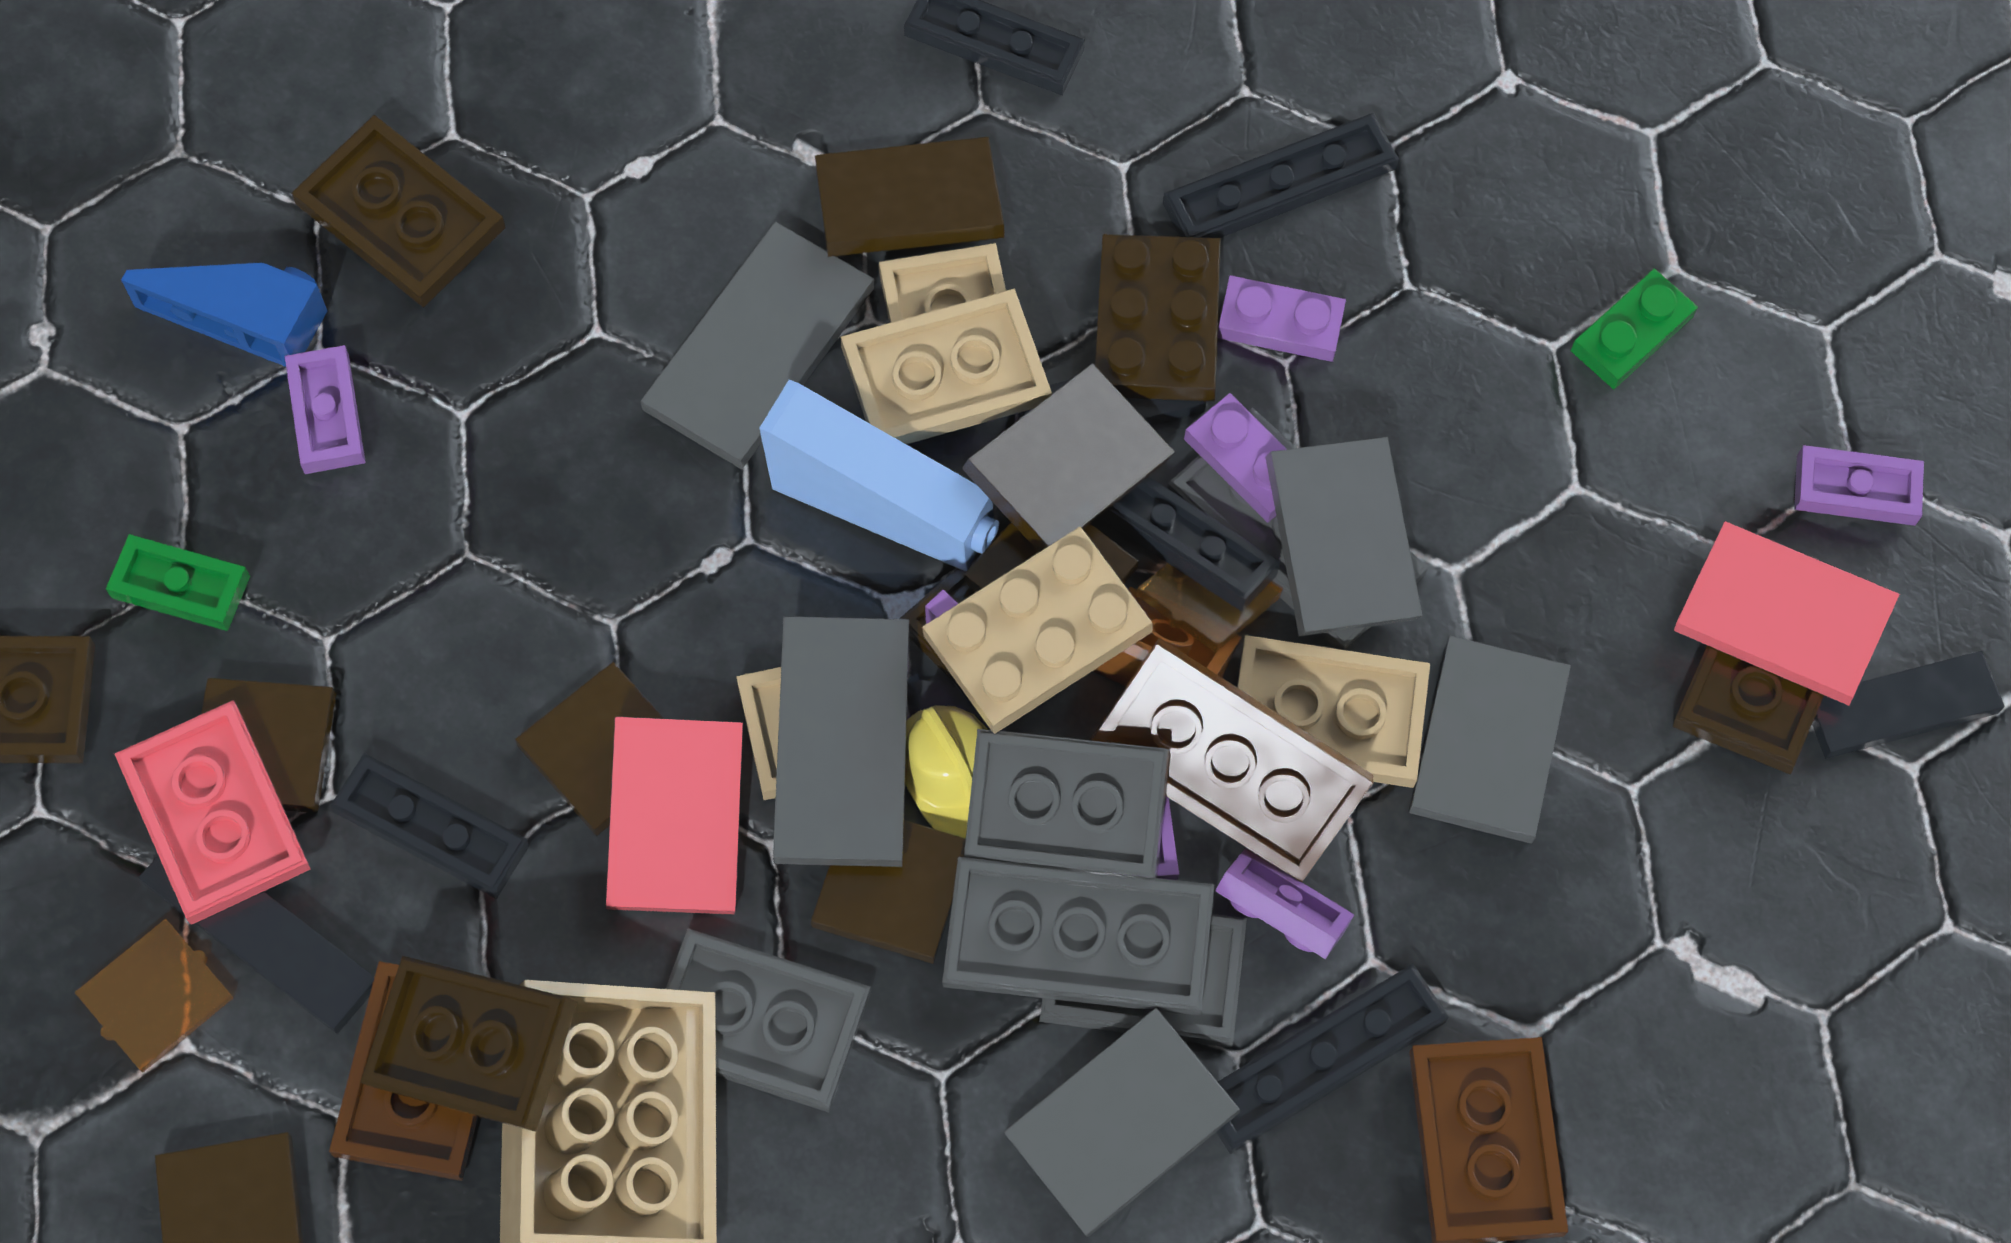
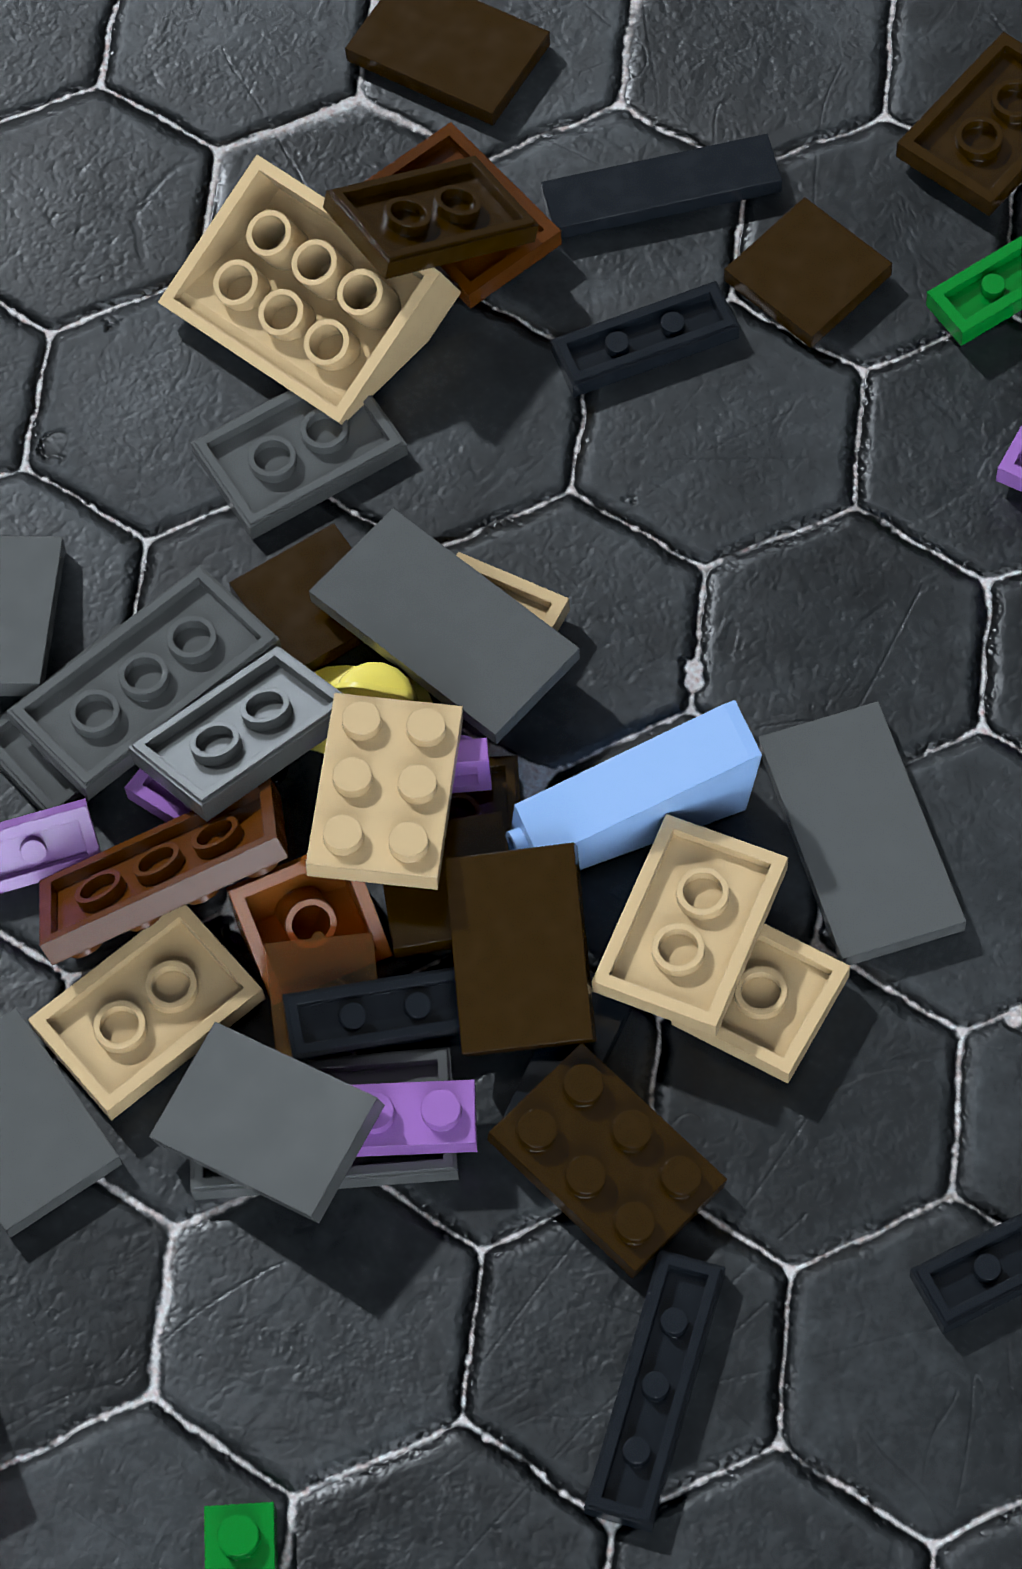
camera: 140 degrees right, 5 degrees down
(154, 995) = (673, 104): clear orange piece -> none
(212, 812) = (774, 199): coral tile -> none
(576, 742) = (600, 487): dark brown tile -> none
(674, 816) = (498, 486): coral tile -> none
(909, 196) = (900, 1047): dark brown tile -> none
(1281, 318) = (521, 1273): medium lavender plate -> none

